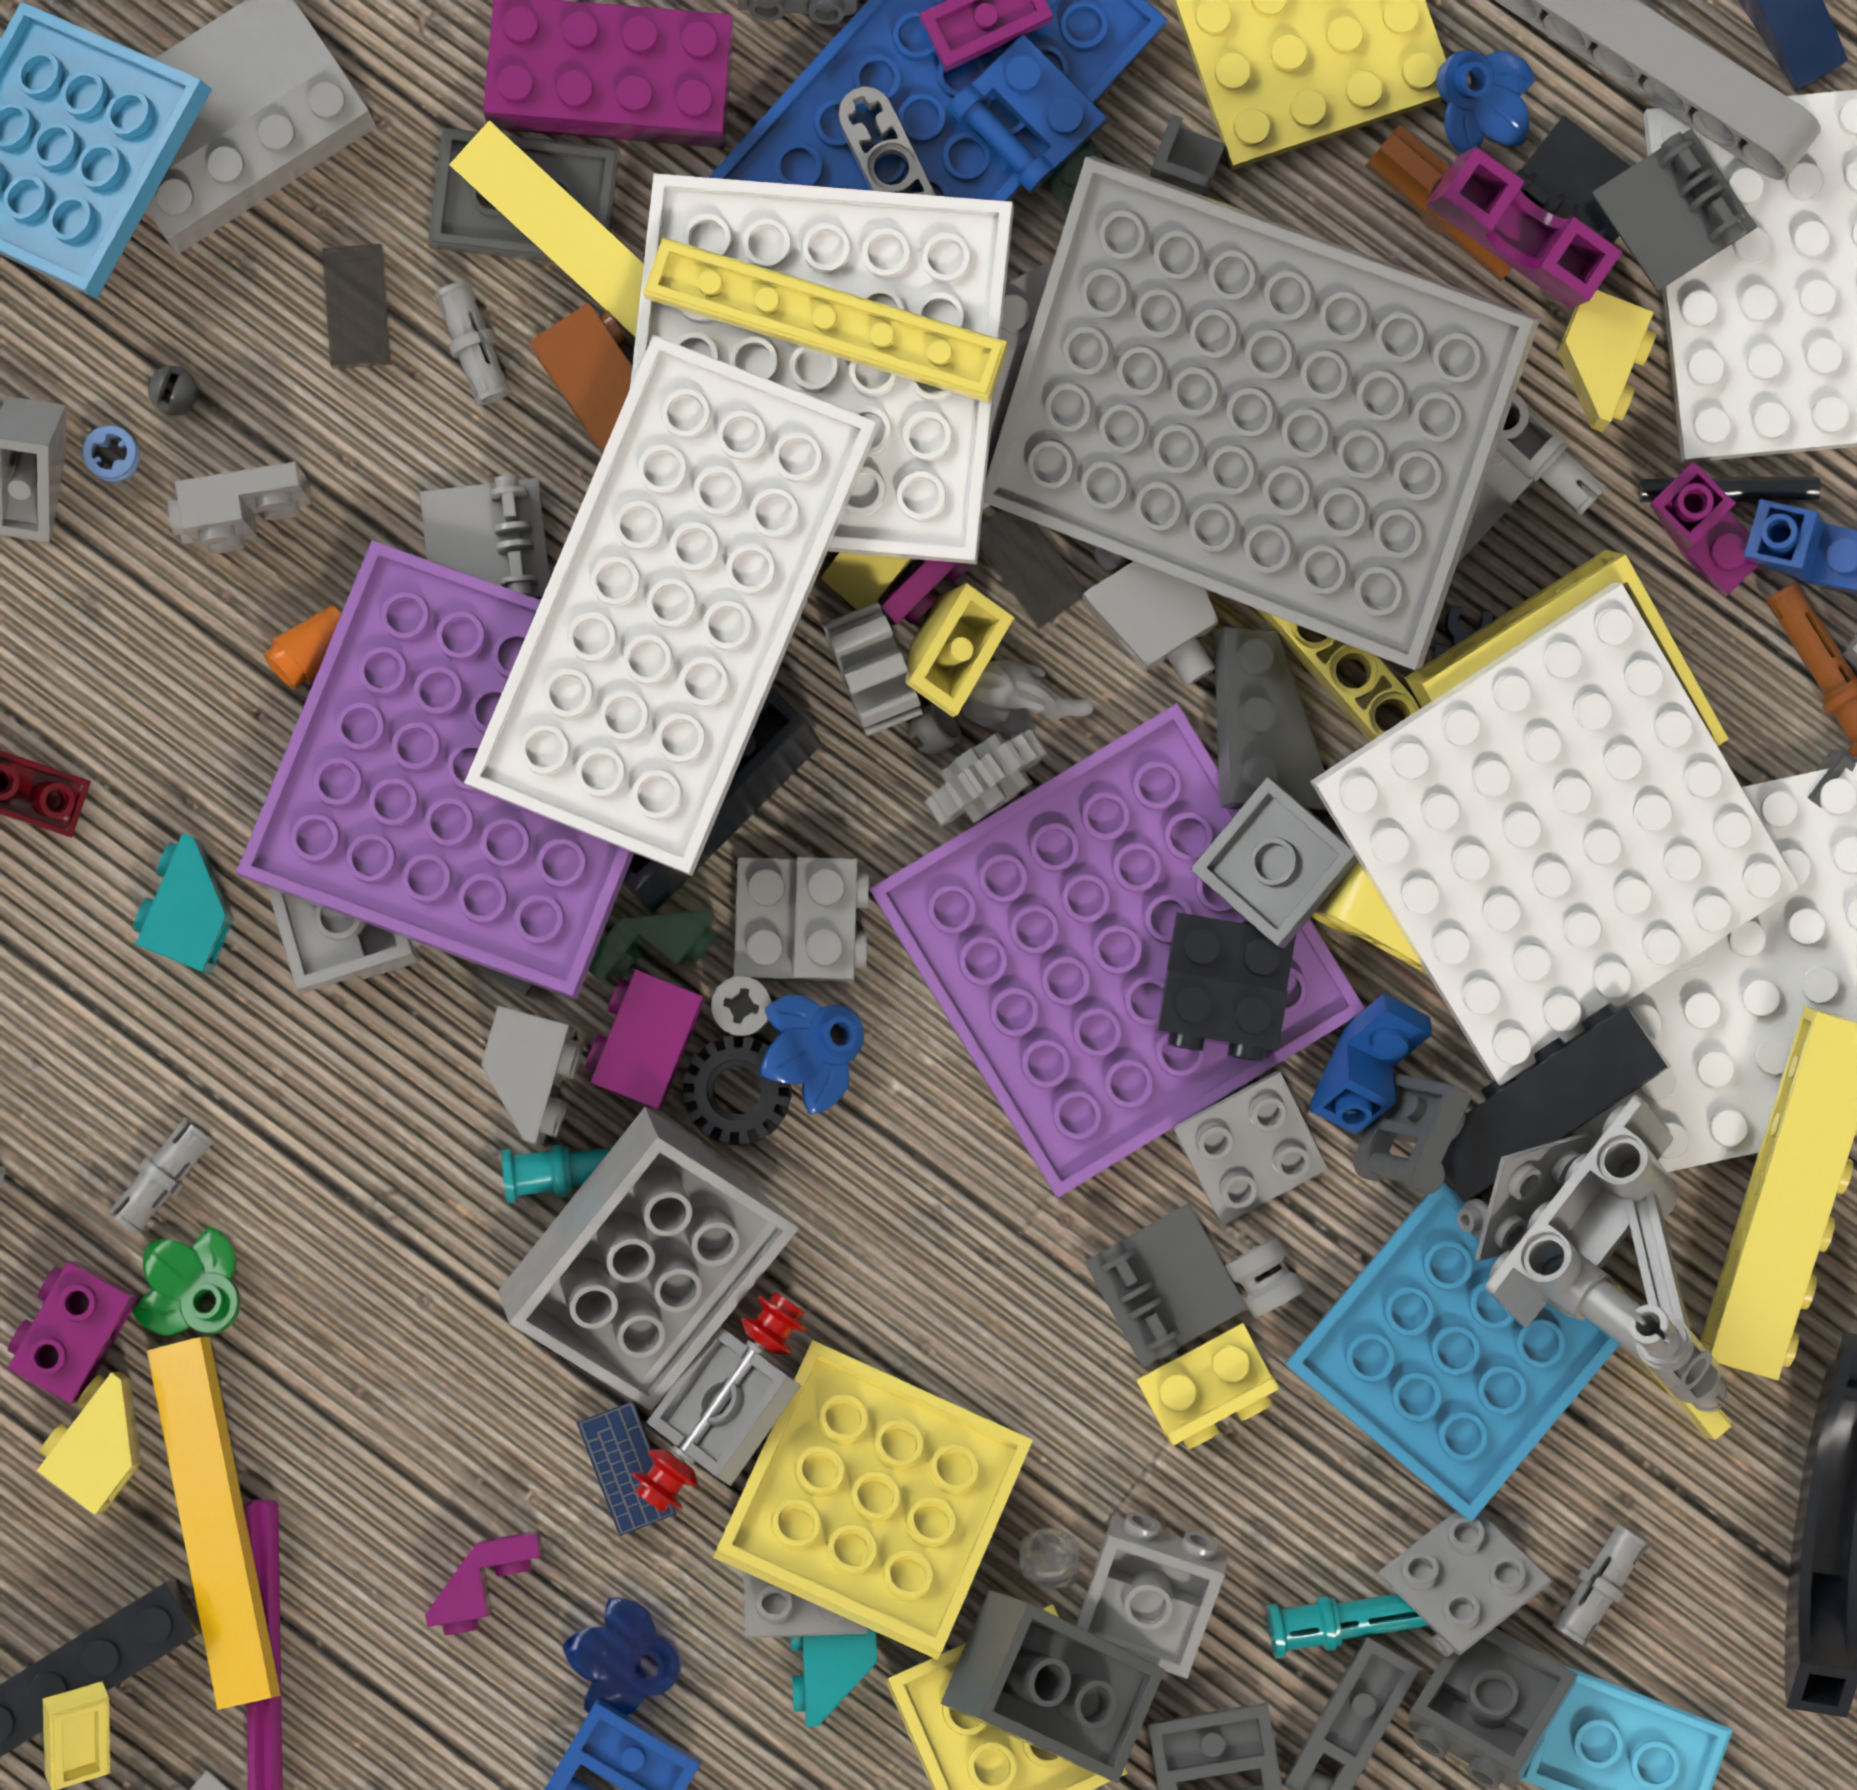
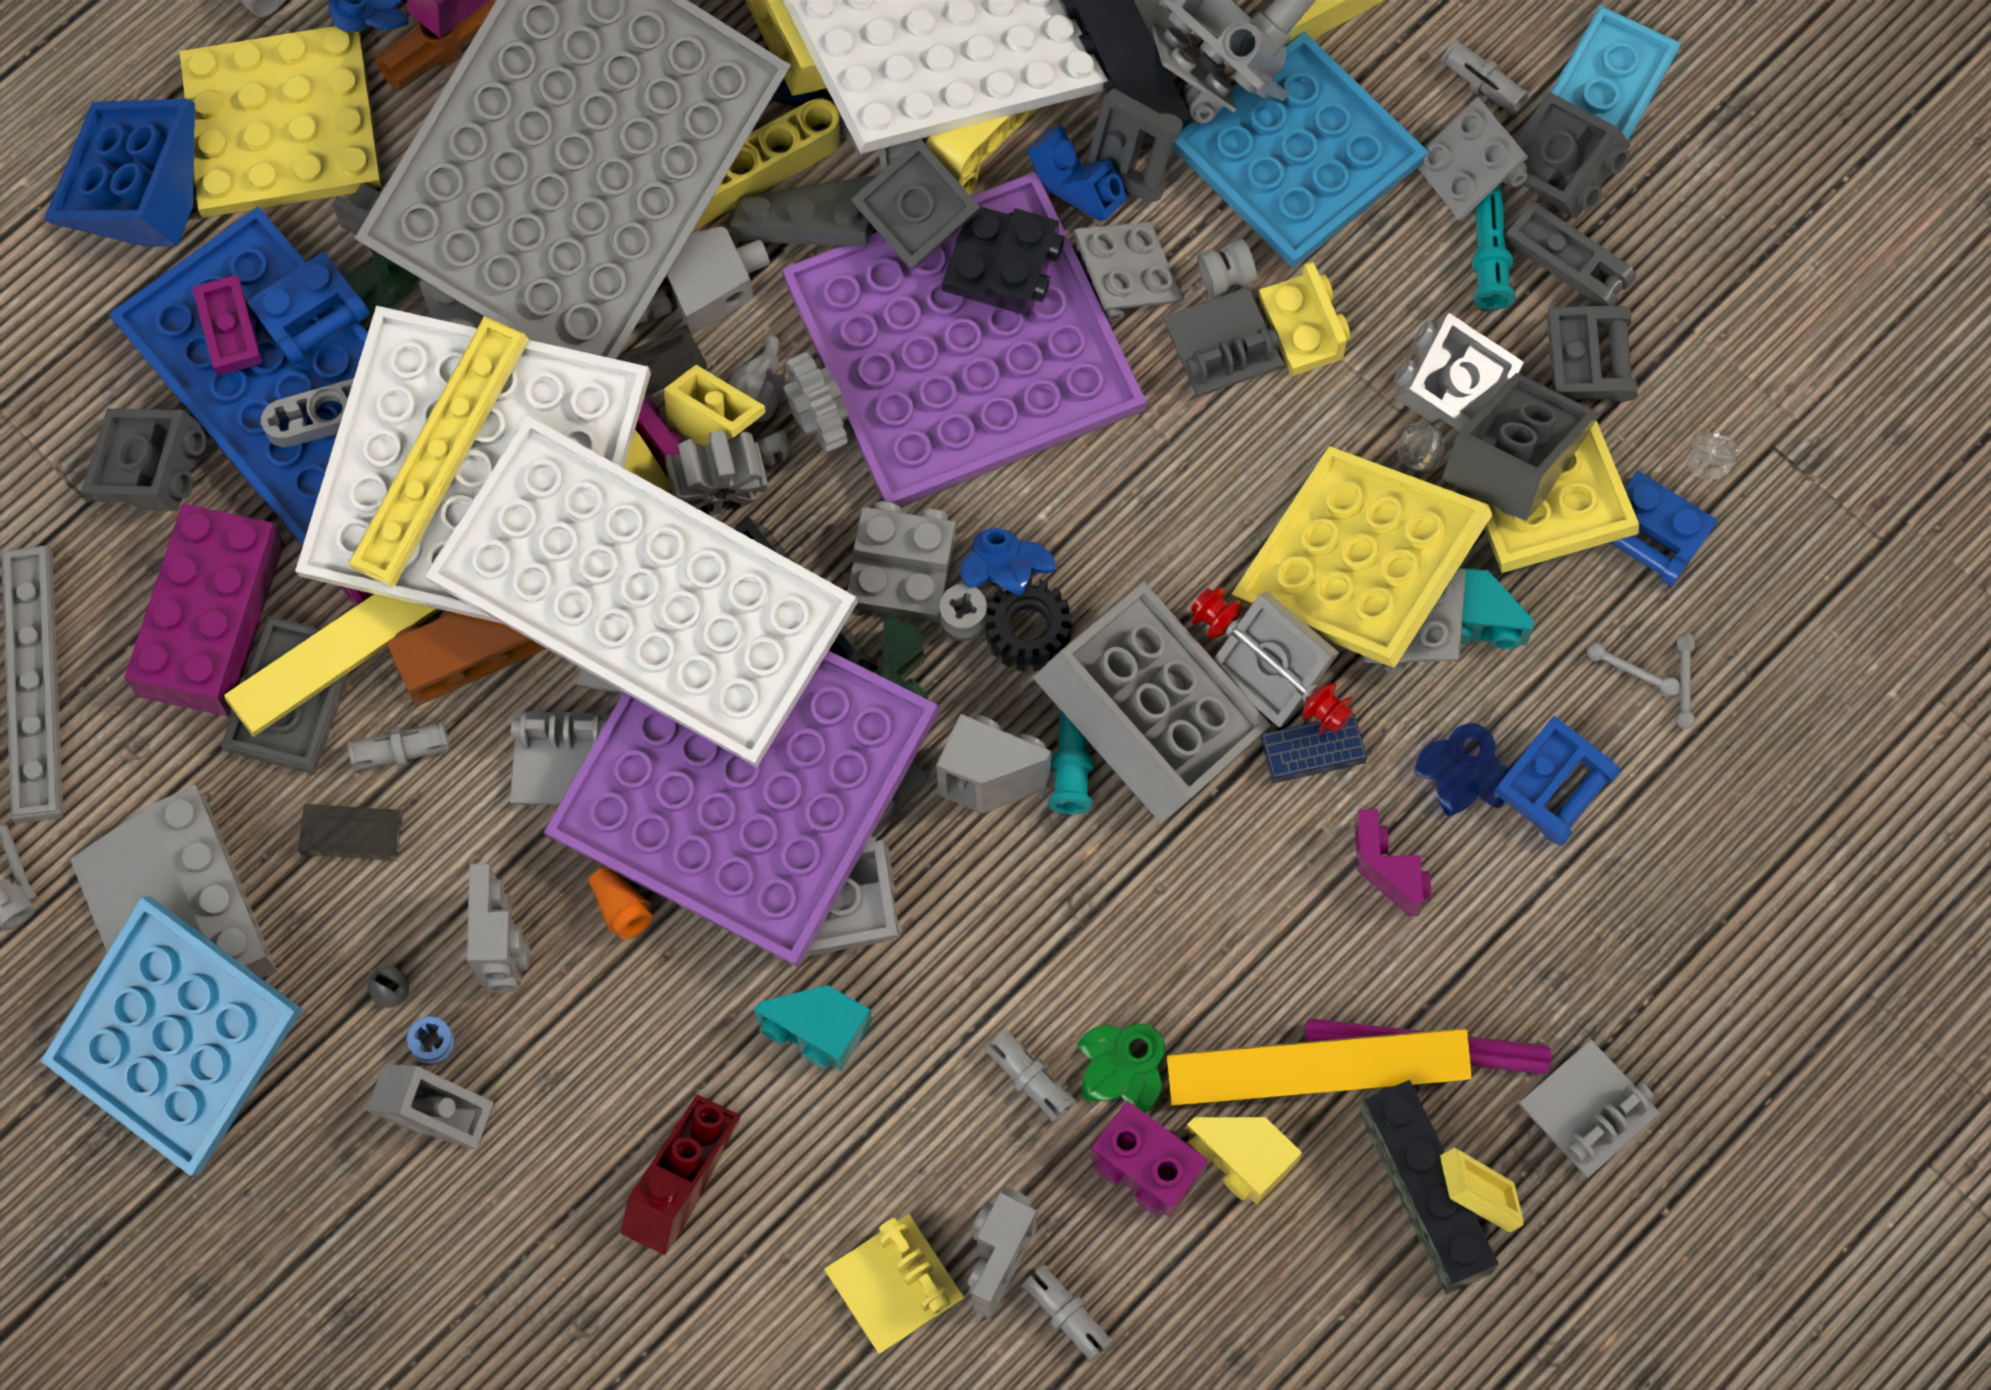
camera: 75 degrees left, 15 degrees down
(645, 1039) = (978, 679): magenta brick -> none

